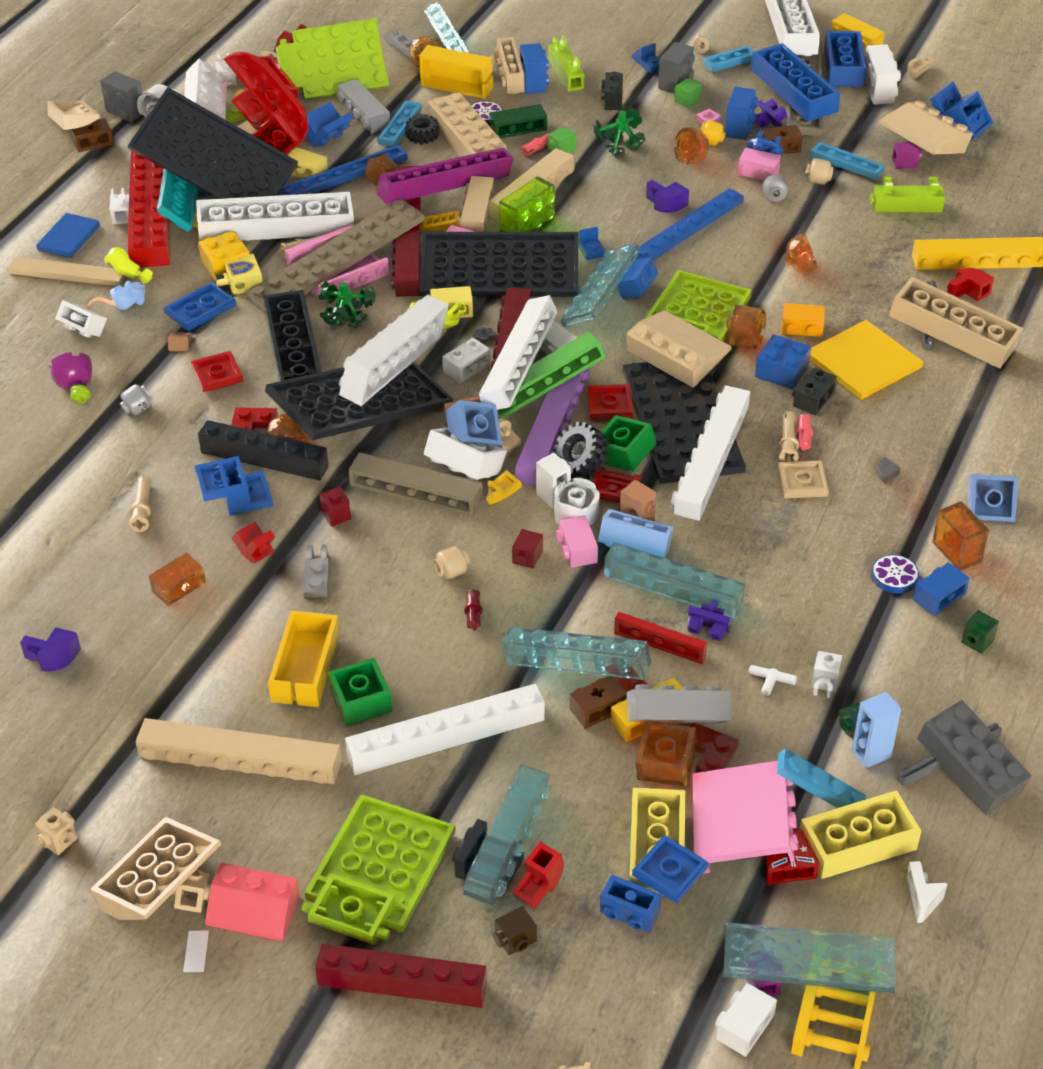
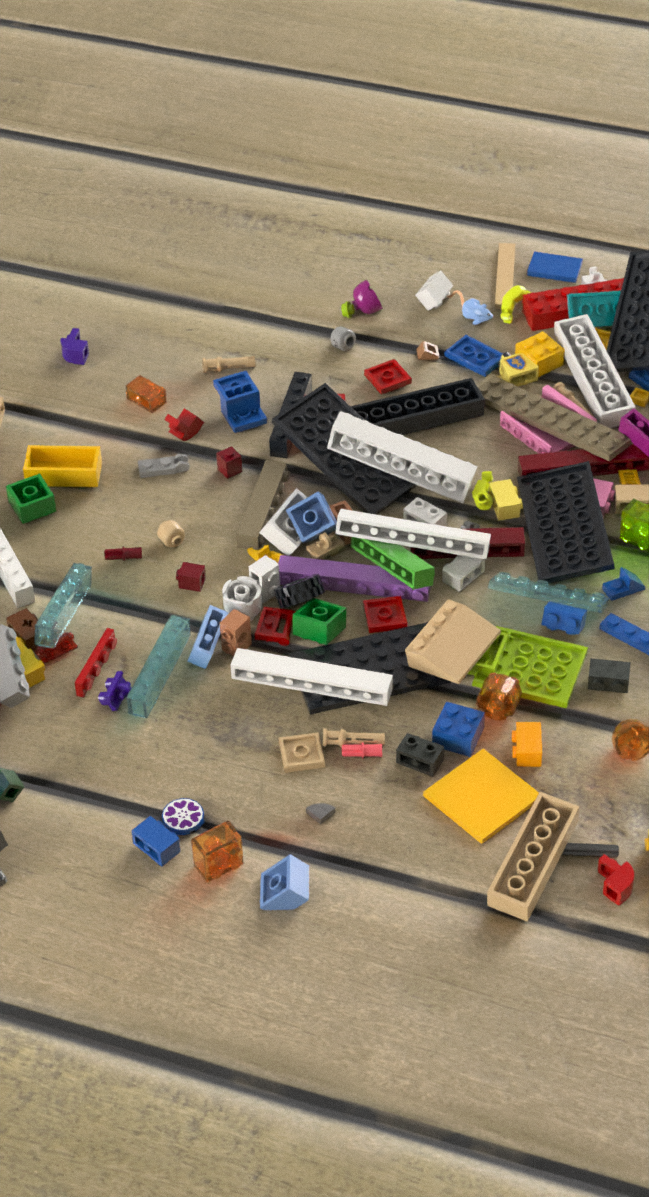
camera: 85 degrees right, 0 degrees up
(345, 304) = (472, 429): dark green plant -> none
(577, 541) = (196, 604): bright pink brick -> none
(720, 259) = (609, 675): none -> pearl dark grey brick
(771, 676) = (58, 736): white piece -> none
(826, 672) = (57, 764): white brick -> none
(979, 631) = (106, 868): dark green brick -> none

